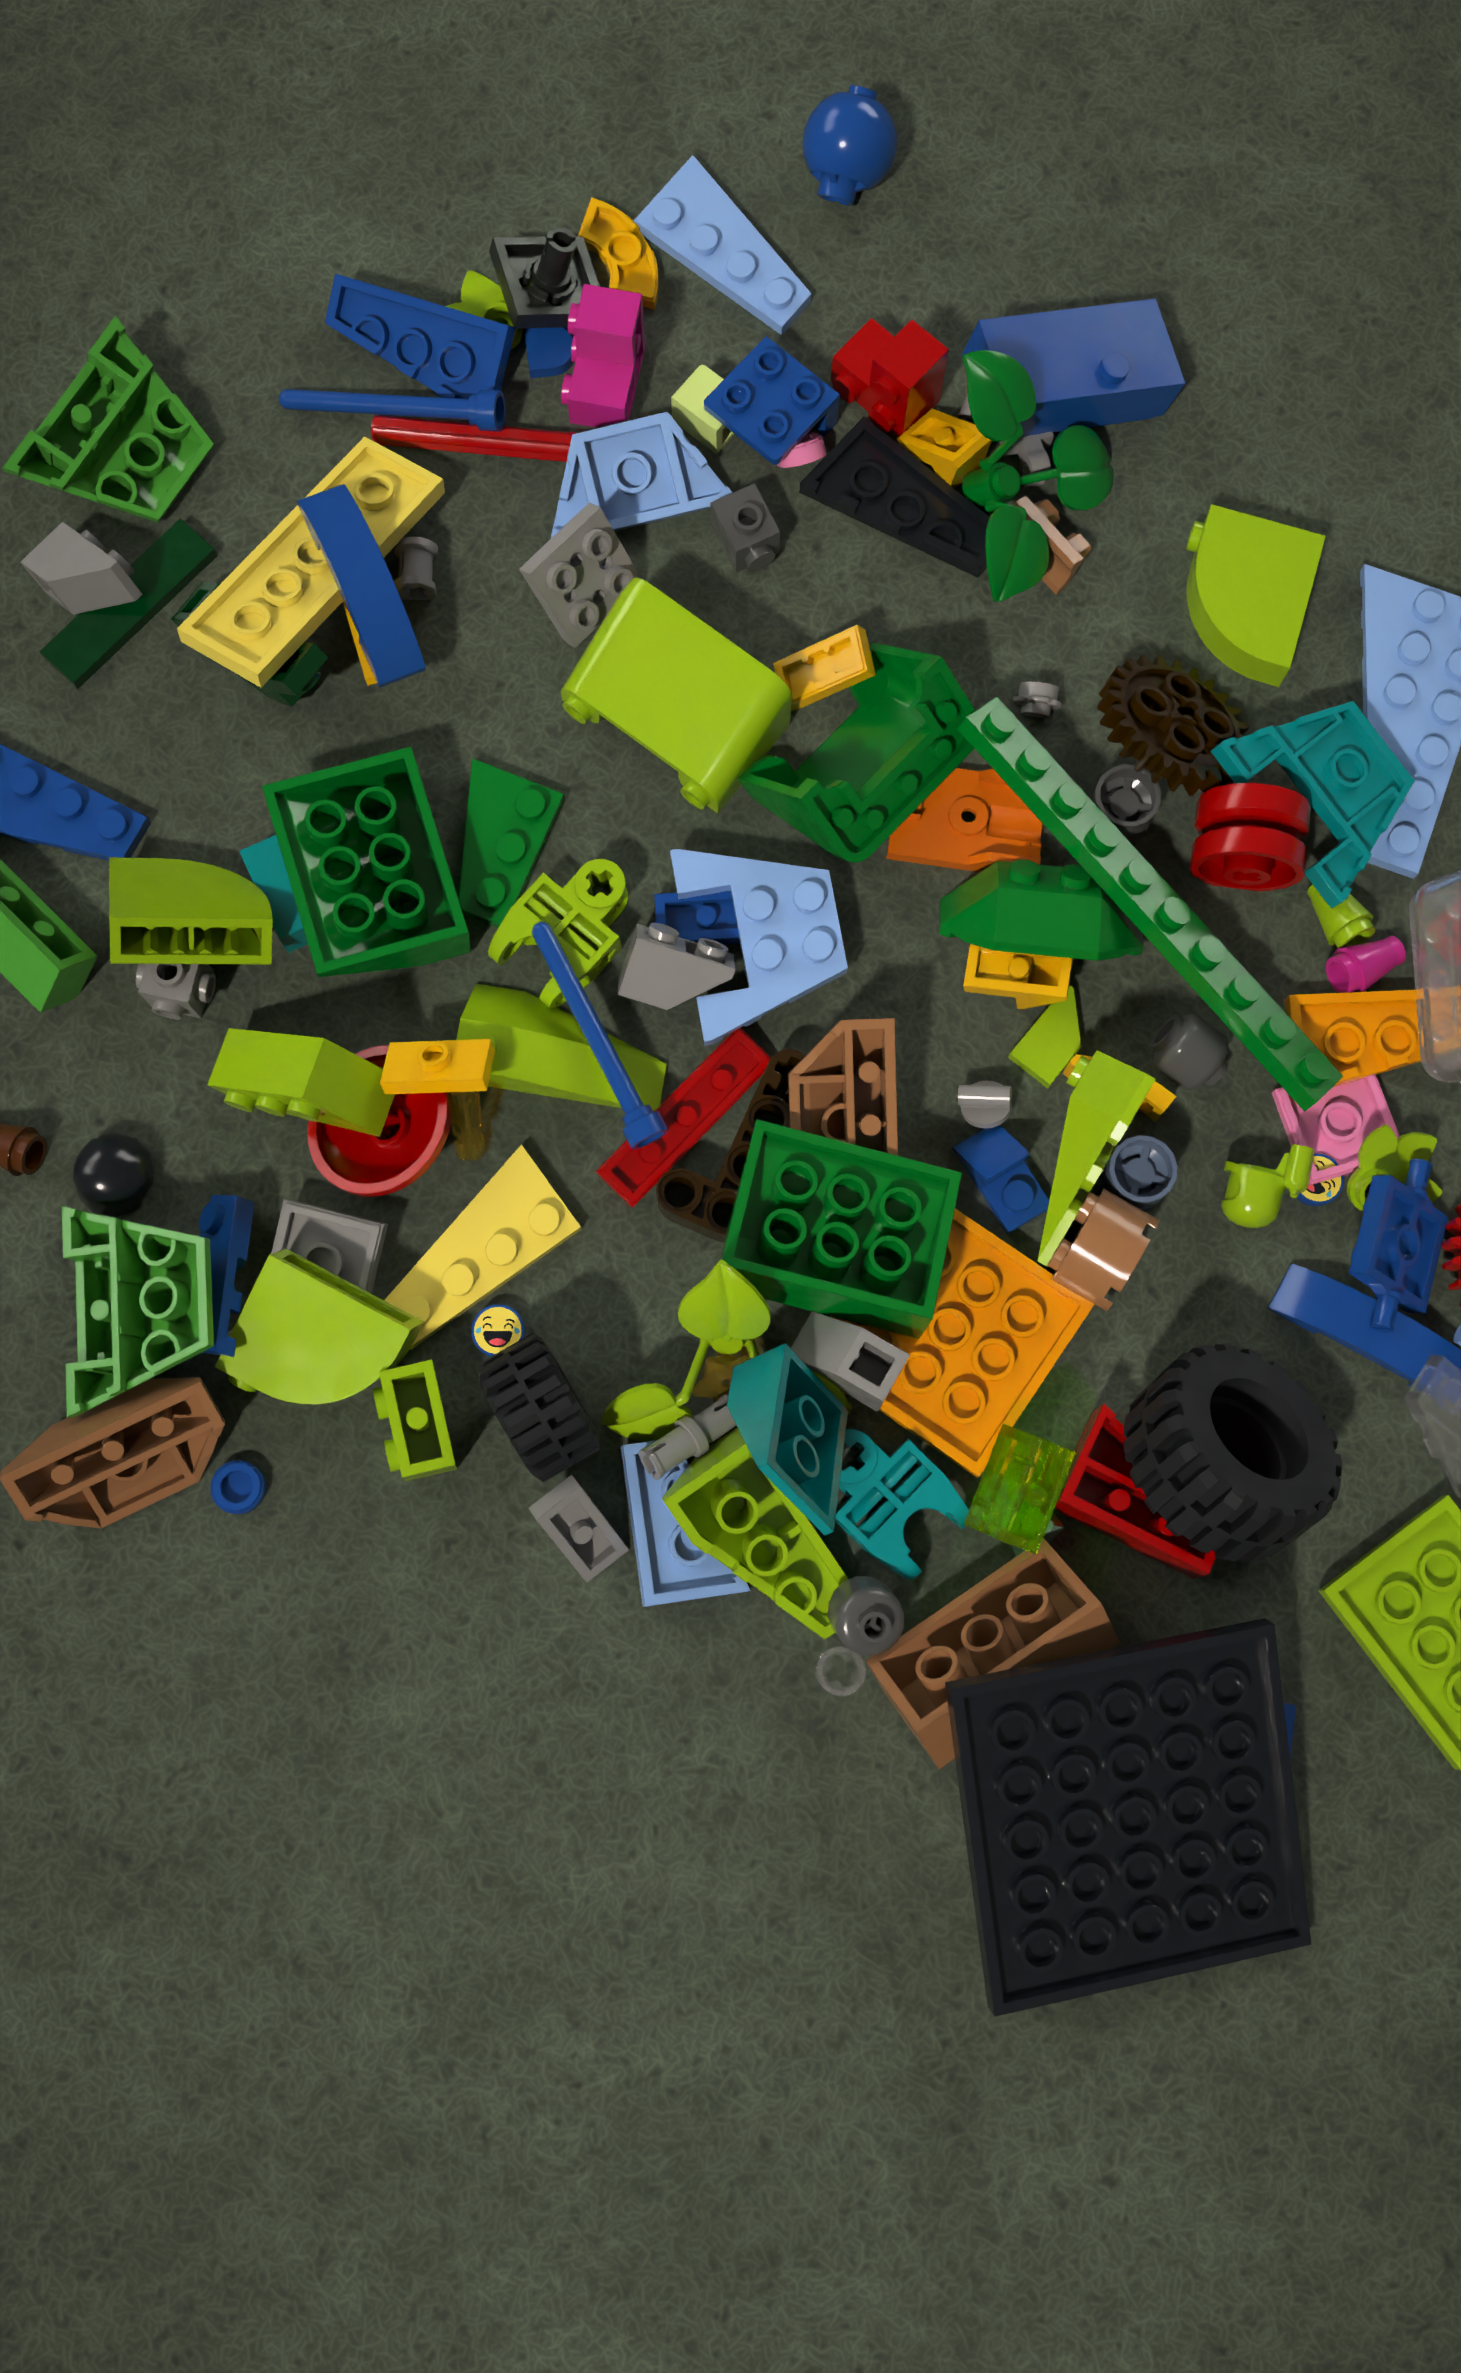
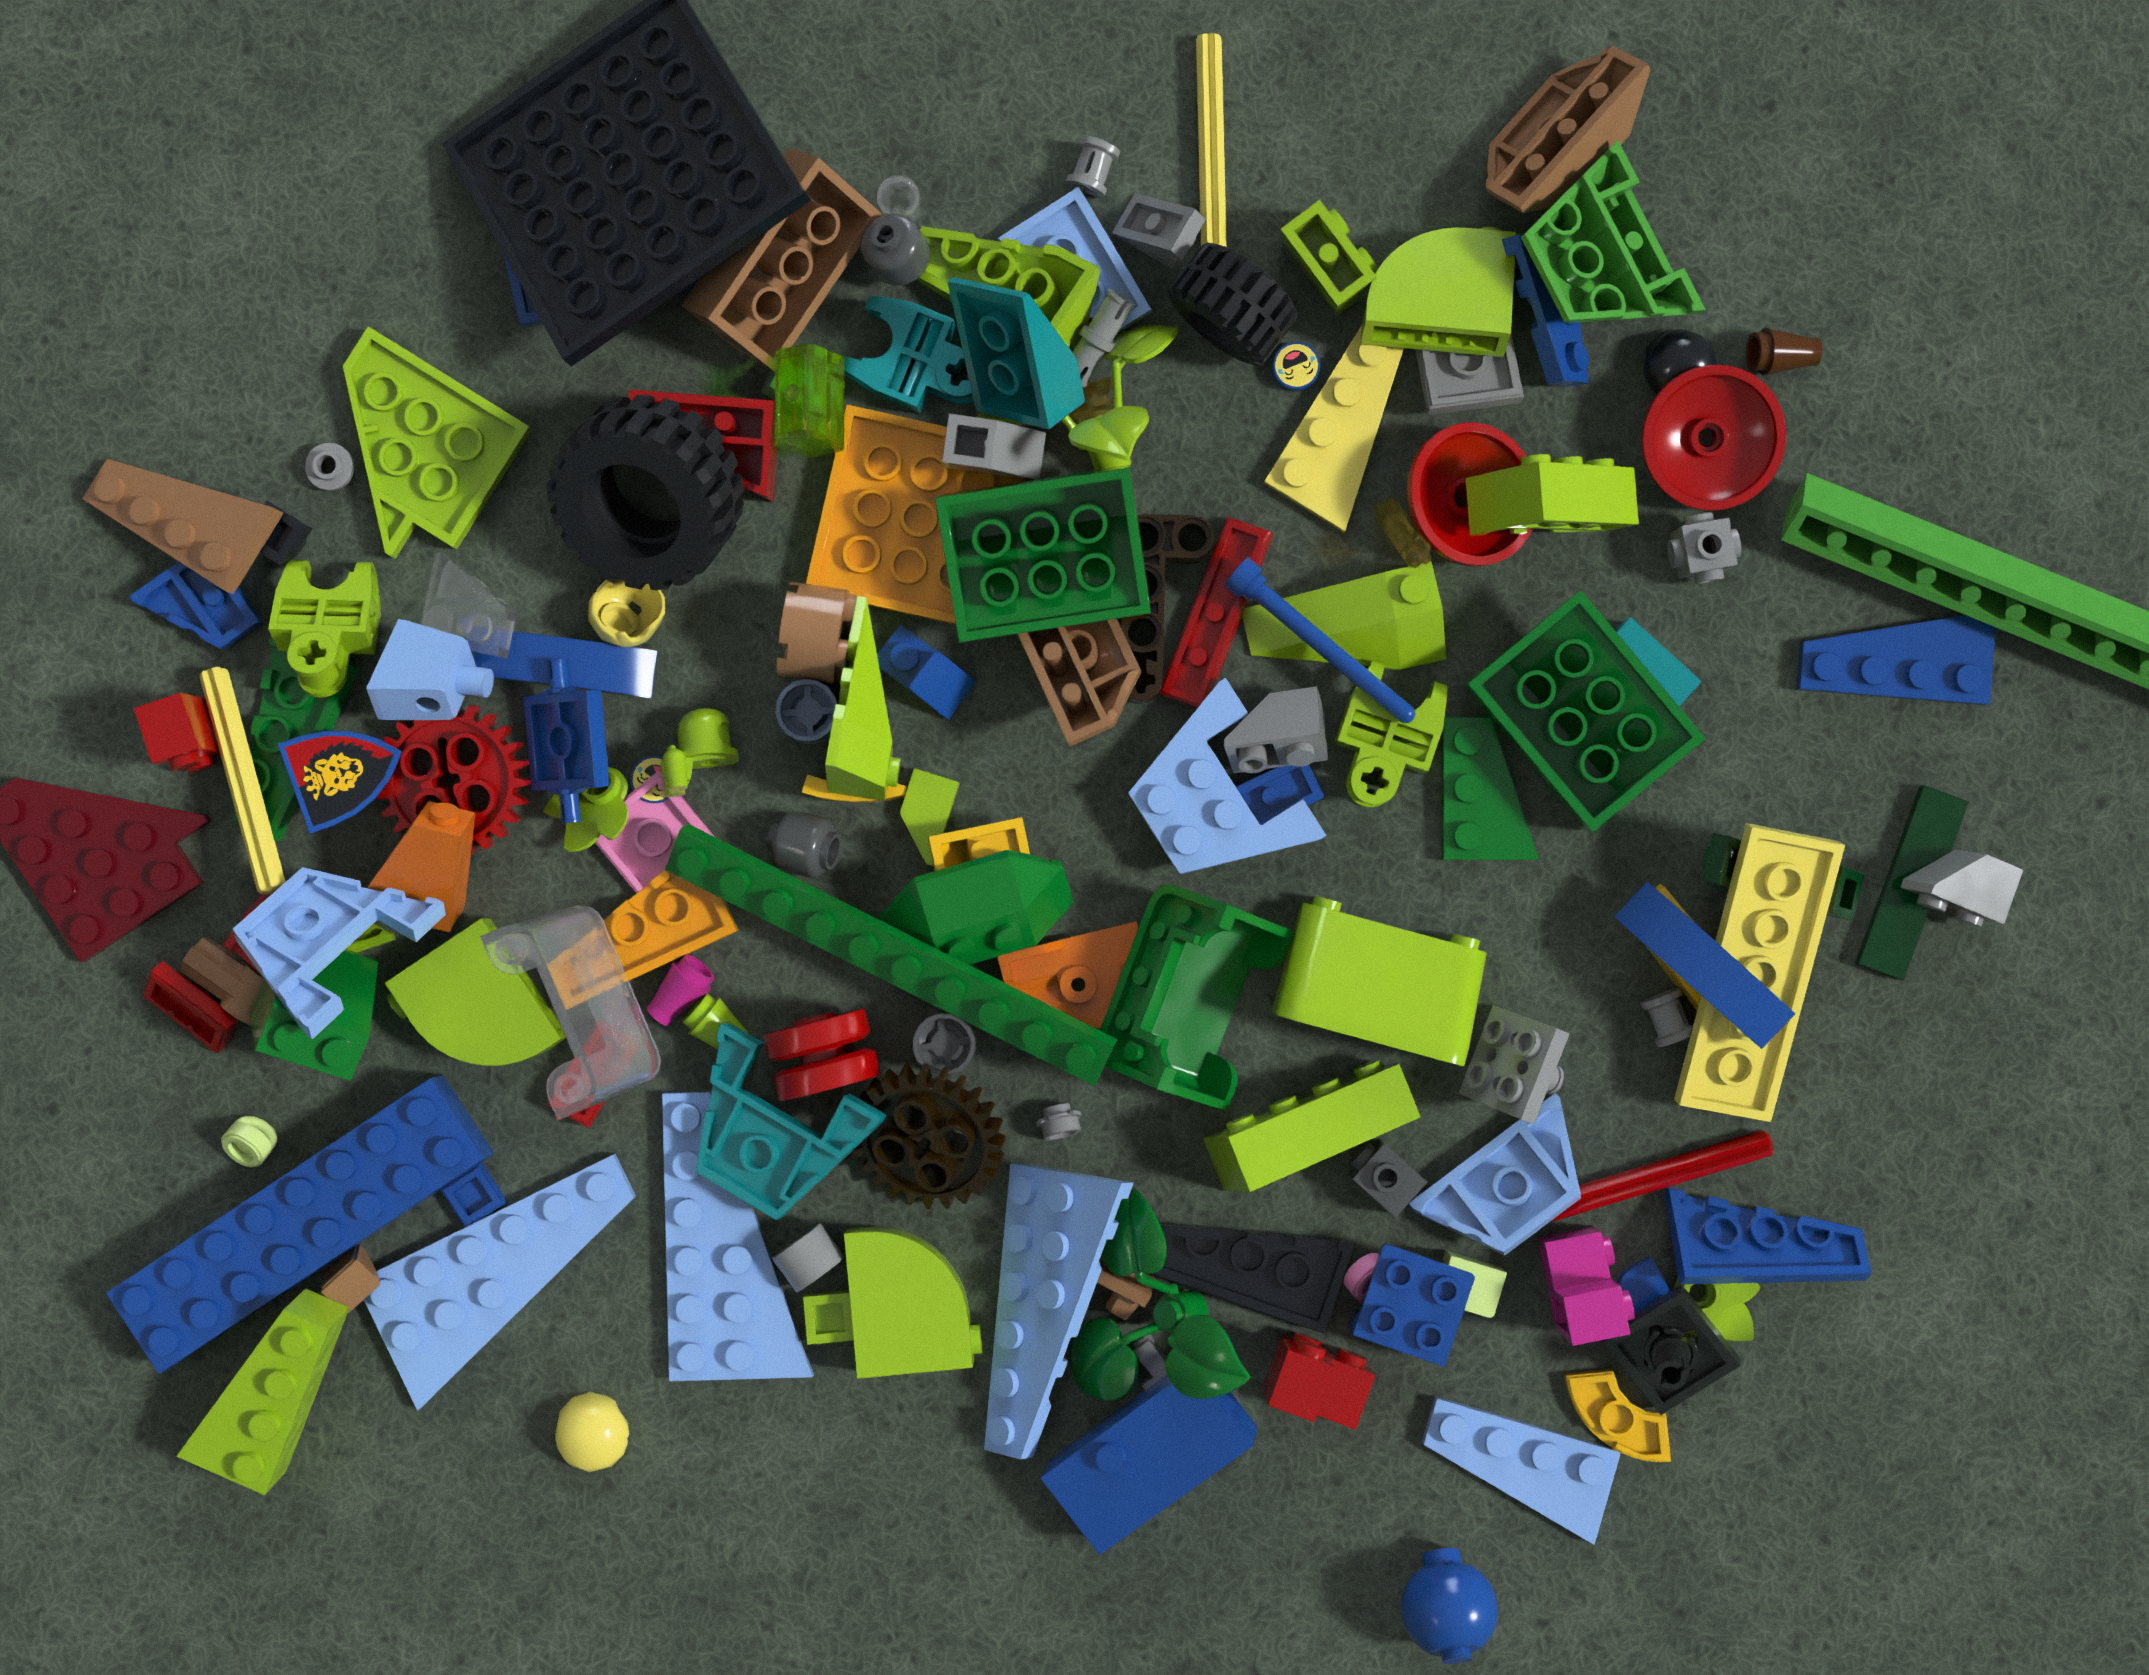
camera: 160 degrees right, 10 degrees up
(96, 1059) = (1745, 442): none -> red dish
(115, 434) = (1997, 1030): bright green wedge -> none
(185, 914) = (1721, 602): lime brick -> none
(238, 1487) = (1454, 152): blue tile -> none
(437, 1066) = (1440, 549): yellow plate -> none
(482, 409) = (1673, 1191): blue piece -> none
(485, 1598) = (1211, 138): none -> light yellow axle
(620, 1625) = (1093, 166): none -> light grey bush
(801, 592) = (1312, 1128): none -> lime wedge
(827, 667) = (1260, 1067): yellow plate -> none
(946, 444) = (1251, 1335): yellow slope -> none
(985, 1103) = (963, 728): light grey plate -> none
(1106, 556) = (1046, 1282): none -> light blue wing
(1298, 1346) = (617, 622): none -> light yellow hair
(1330, 610) = (828, 1317): none -> lime plate
(1330, 666) = (808, 1257): none -> light grey piece

